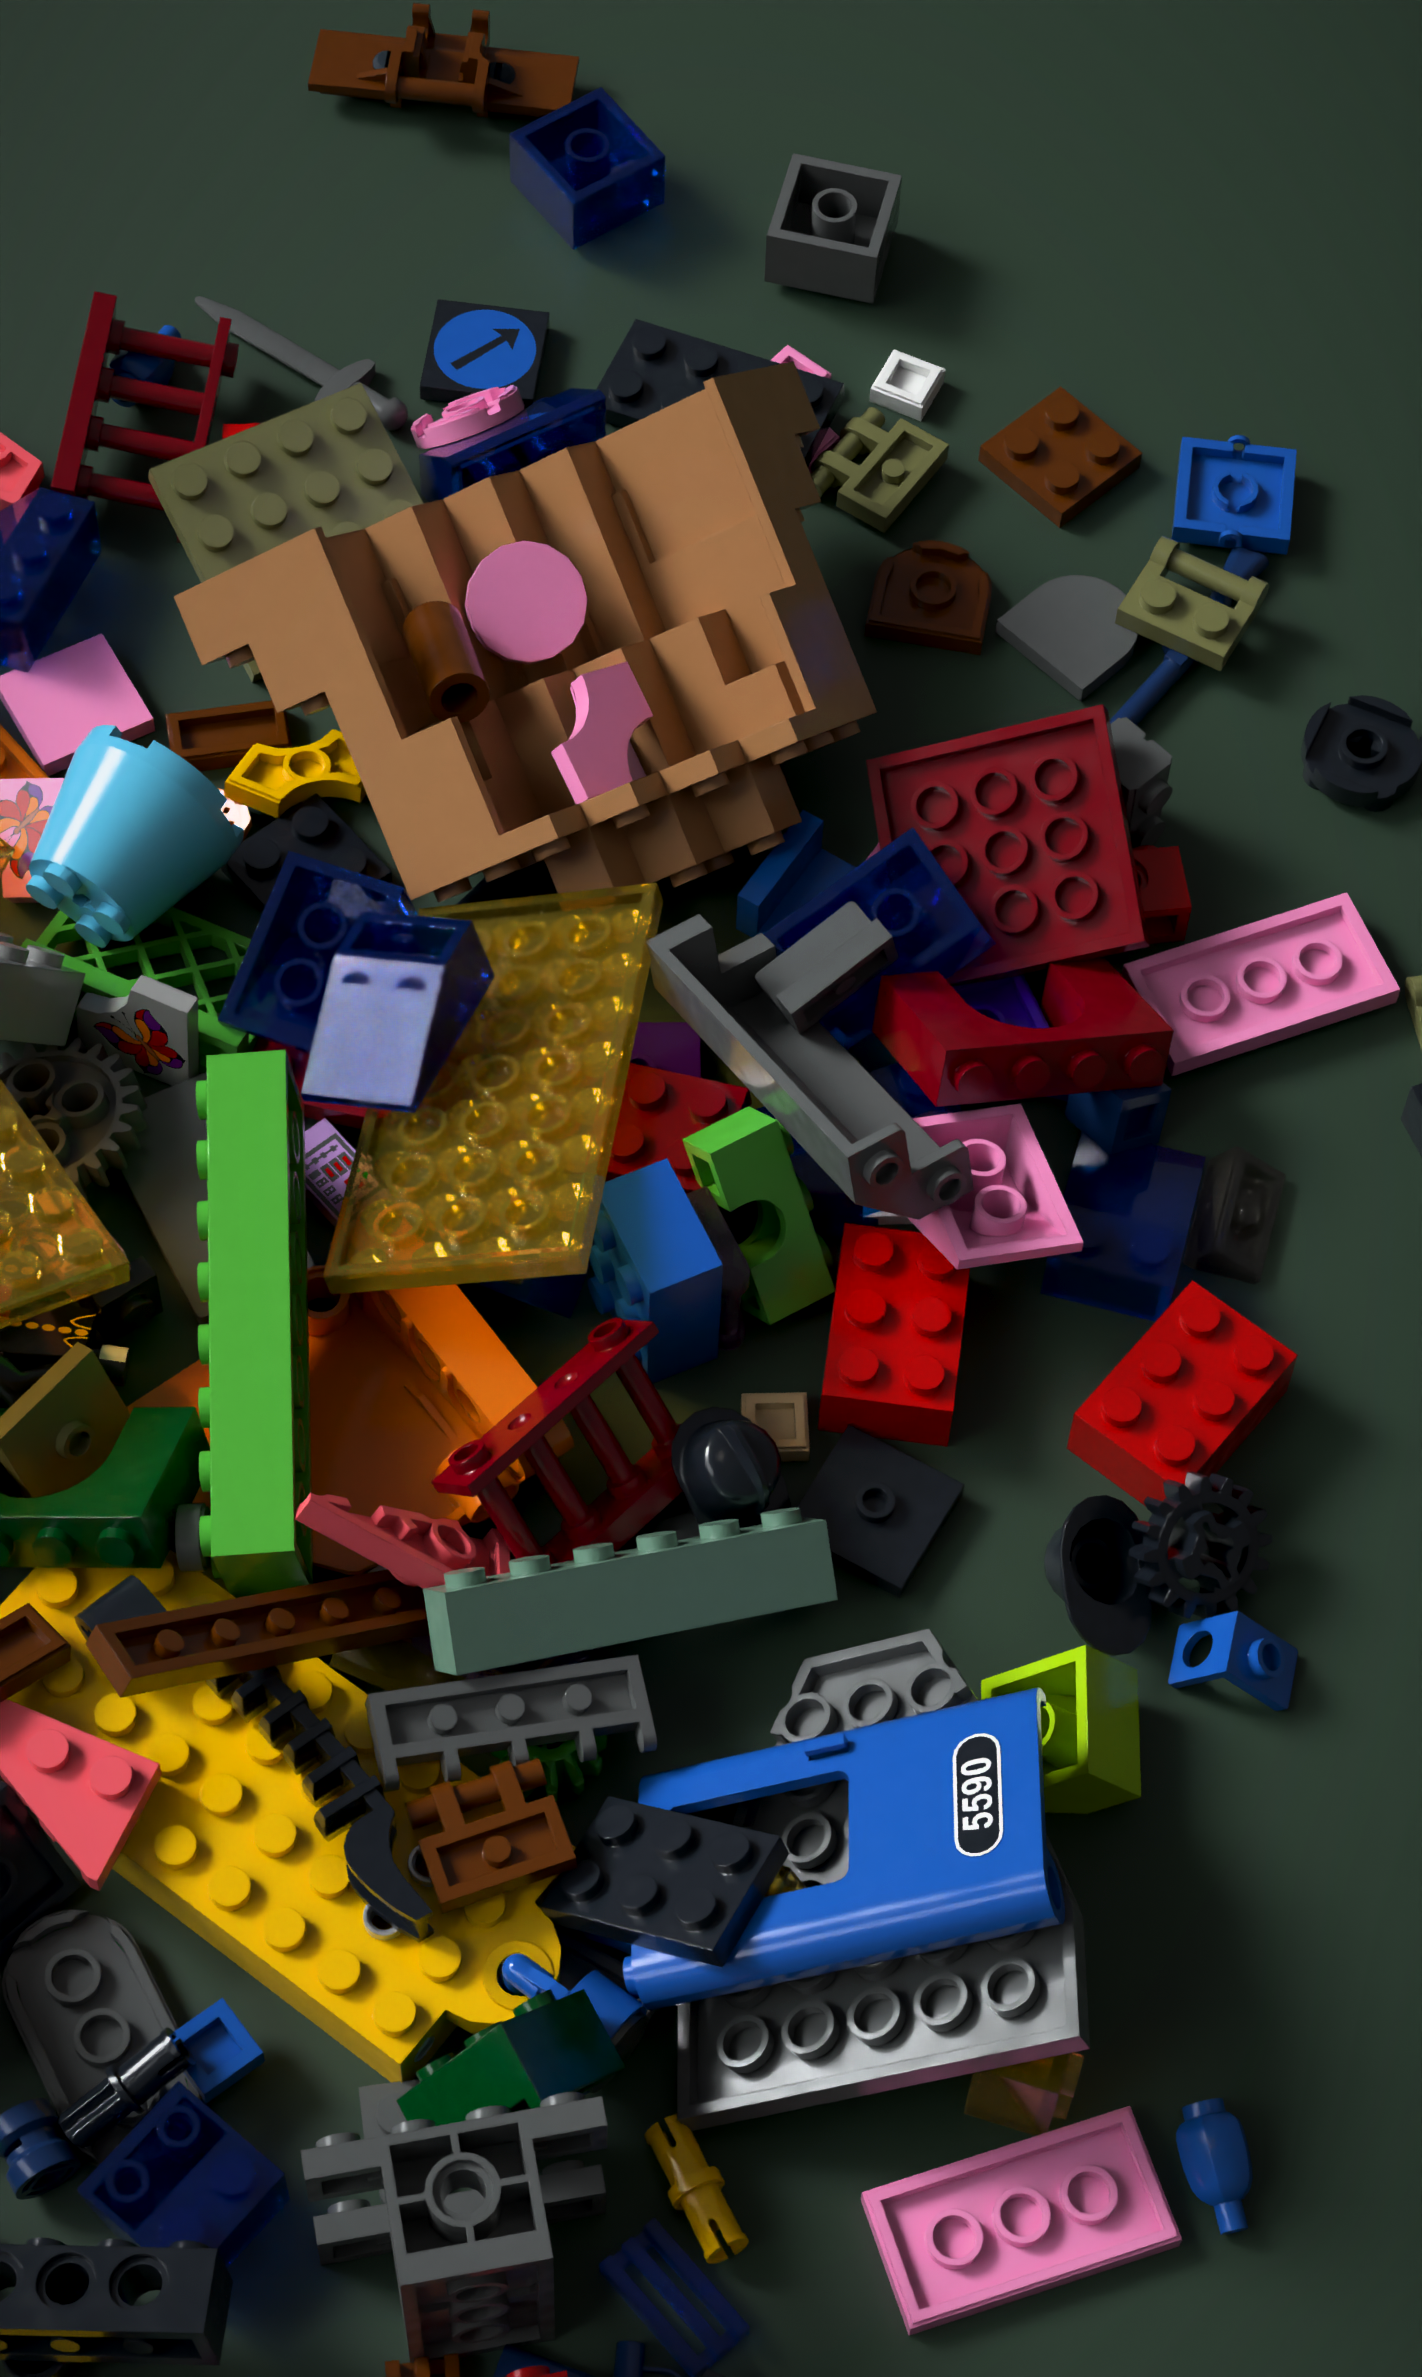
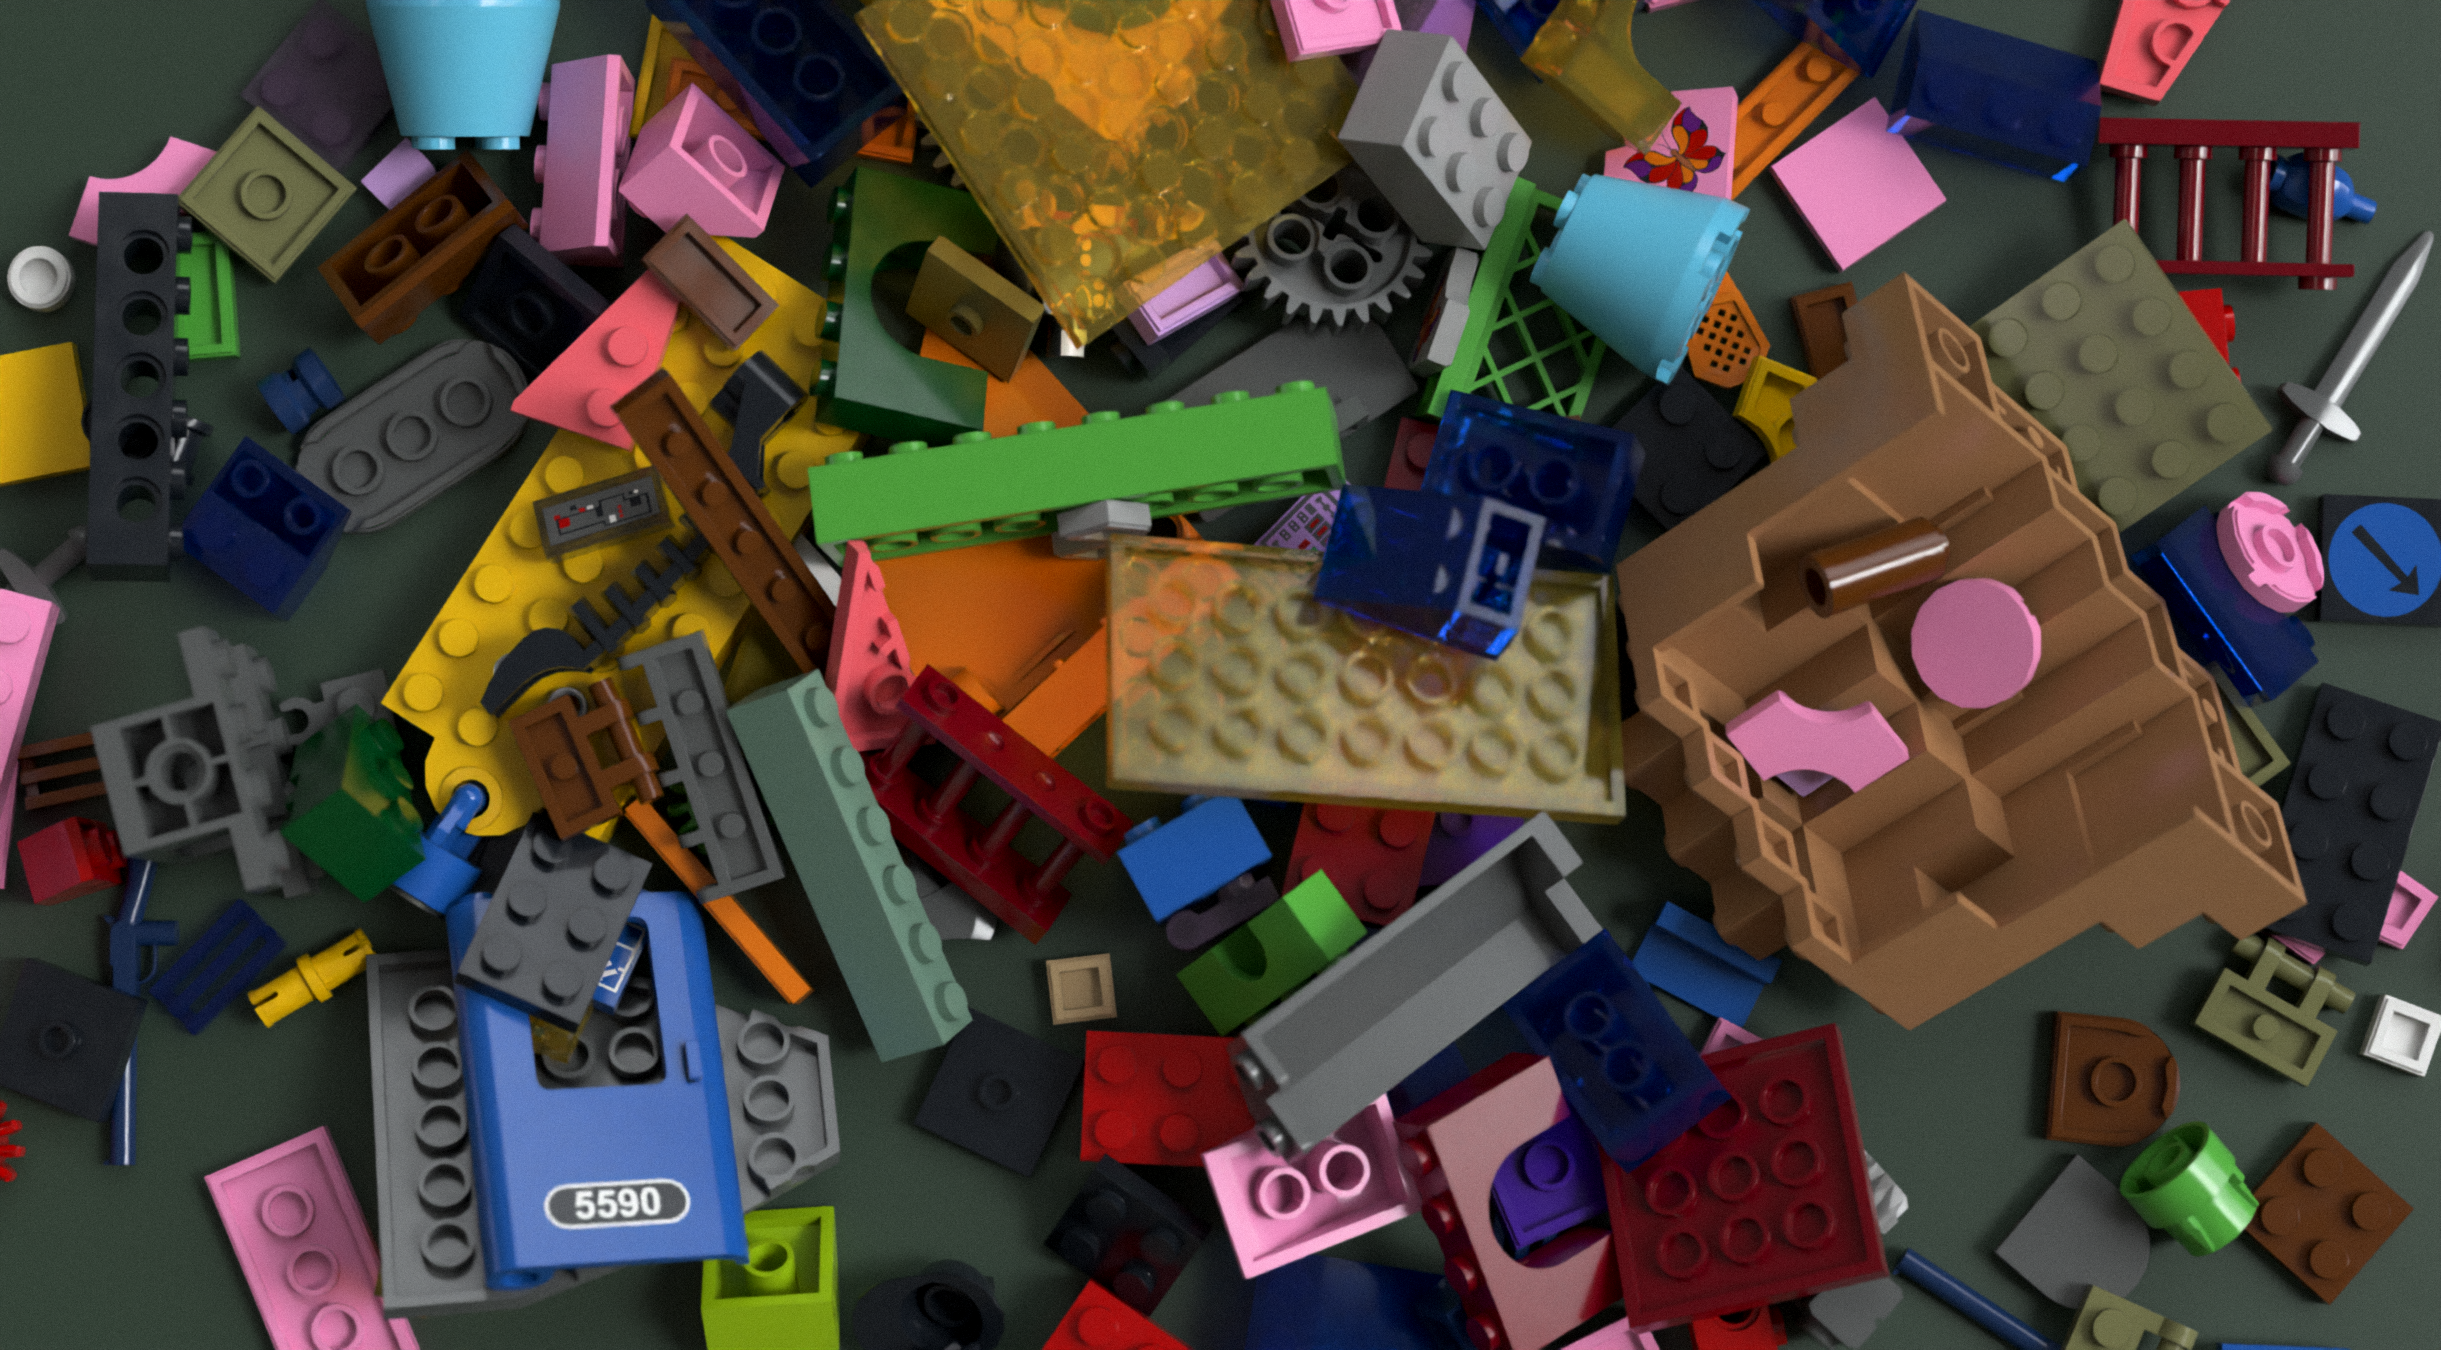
camera: 85 degrees right, 25 degrees up
(126, 2089) = (348, 466): black axle -> none
(187, 1537) = (868, 441): dark grey tile -> none
(220, 2049) = (396, 536): blue tile -> none
(225, 1799) = (603, 514): none -> slope
(315, 1312) = (1087, 528): none -> light grey tile
(677, 1739) = (725, 910): none -> orange tile
(728, 1467) = (1005, 948): black piece -> none
(827, 966) = (1560, 998): dark grey panel -> none
(1026, 1386) = (1127, 1235): none -> black plate
(1033, 530) = (2190, 1189): none -> bright green piece

